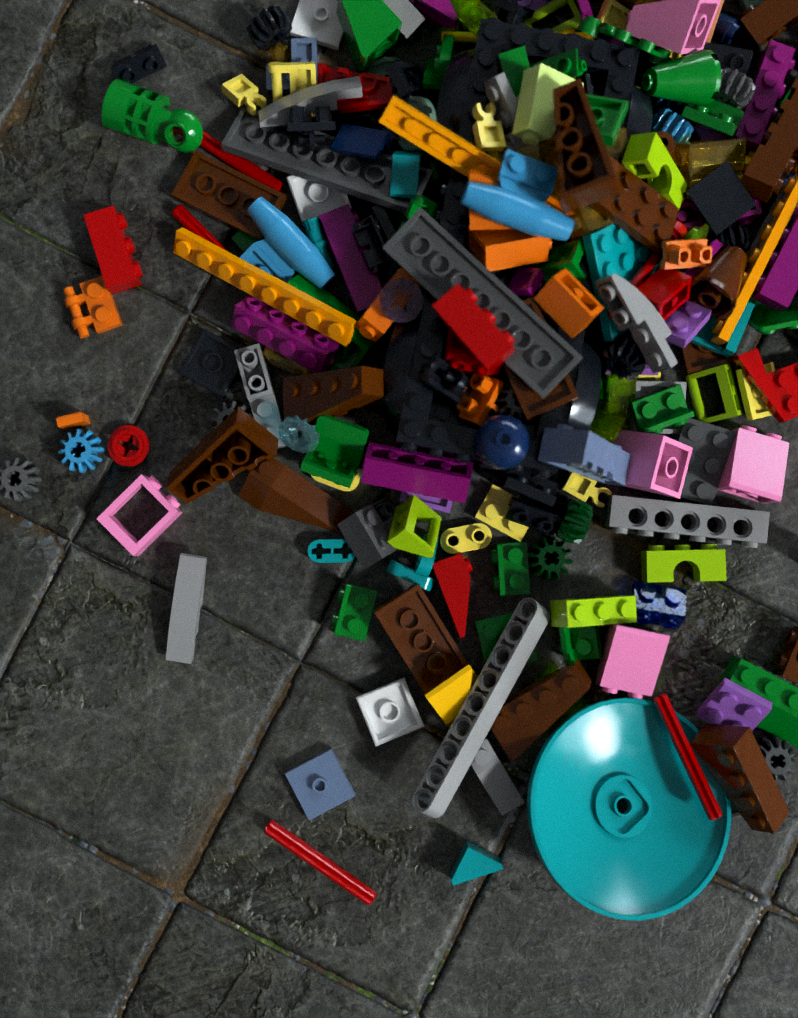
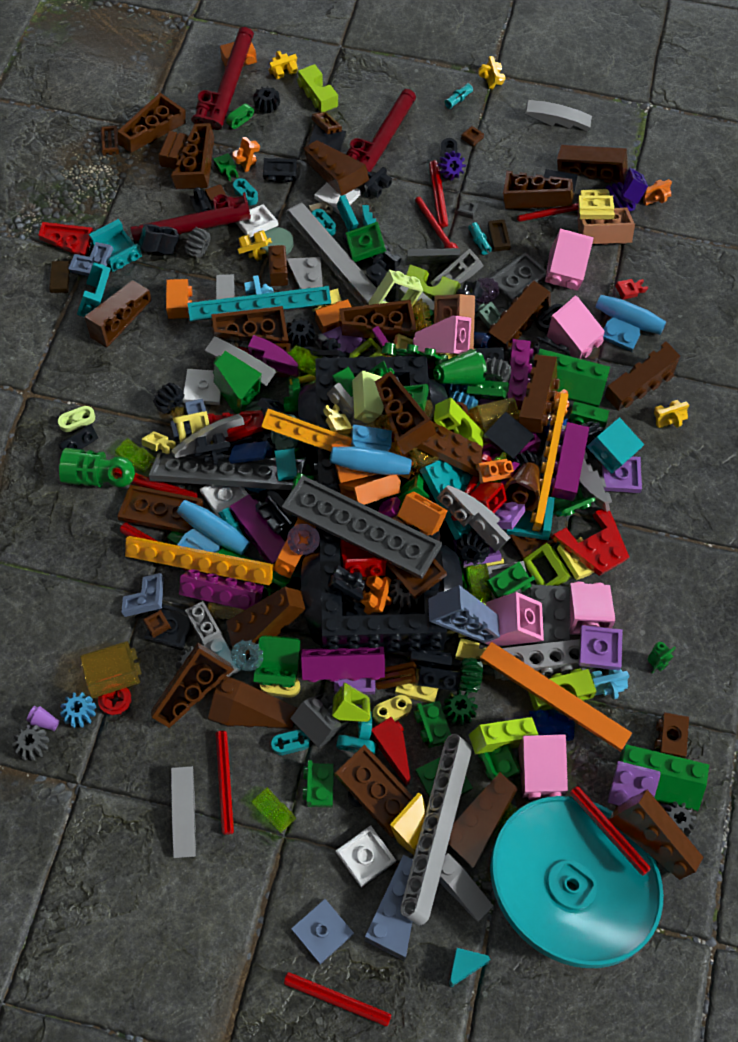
camera: 20 degrees left, 25 degrees down
(36, 451) = (42, 718): none -> medium lavender cone
(72, 420) = (67, 689): orange tile -> none
(100, 304) = (76, 604): orange plate -> none
(113, 249) = (80, 562): red brick -> none
(114, 526) = (120, 765): bright pink window -> none
(128, 408) = (111, 669): none -> clear yellow brick
(141, 28) = (76, 418): none -> yellowish green plate
(193, 321) = (148, 599): none -> sand blue plate
(196, 358) = (156, 623): none -> reddish brown tile
(210, 105) = (137, 456): none -> clear neon green slope
(242, 581) = (224, 783): none -> red axle
(293, 629) = (273, 810): none -> clear neon green slope
(393, 800) = (389, 927): none -> sand blue wedge
(474, 327) = (360, 539): red brick -> none
(483, 489) = (396, 672): none -> reddish brown tile
(501, 442) = (400, 616): dark blue cylinder -> none
(672, 576) = (556, 696): none -> orange tile
(750, 528) = (600, 647): none -> medium lavender plate
(750, 573) = (611, 683): none -> medium azure hips

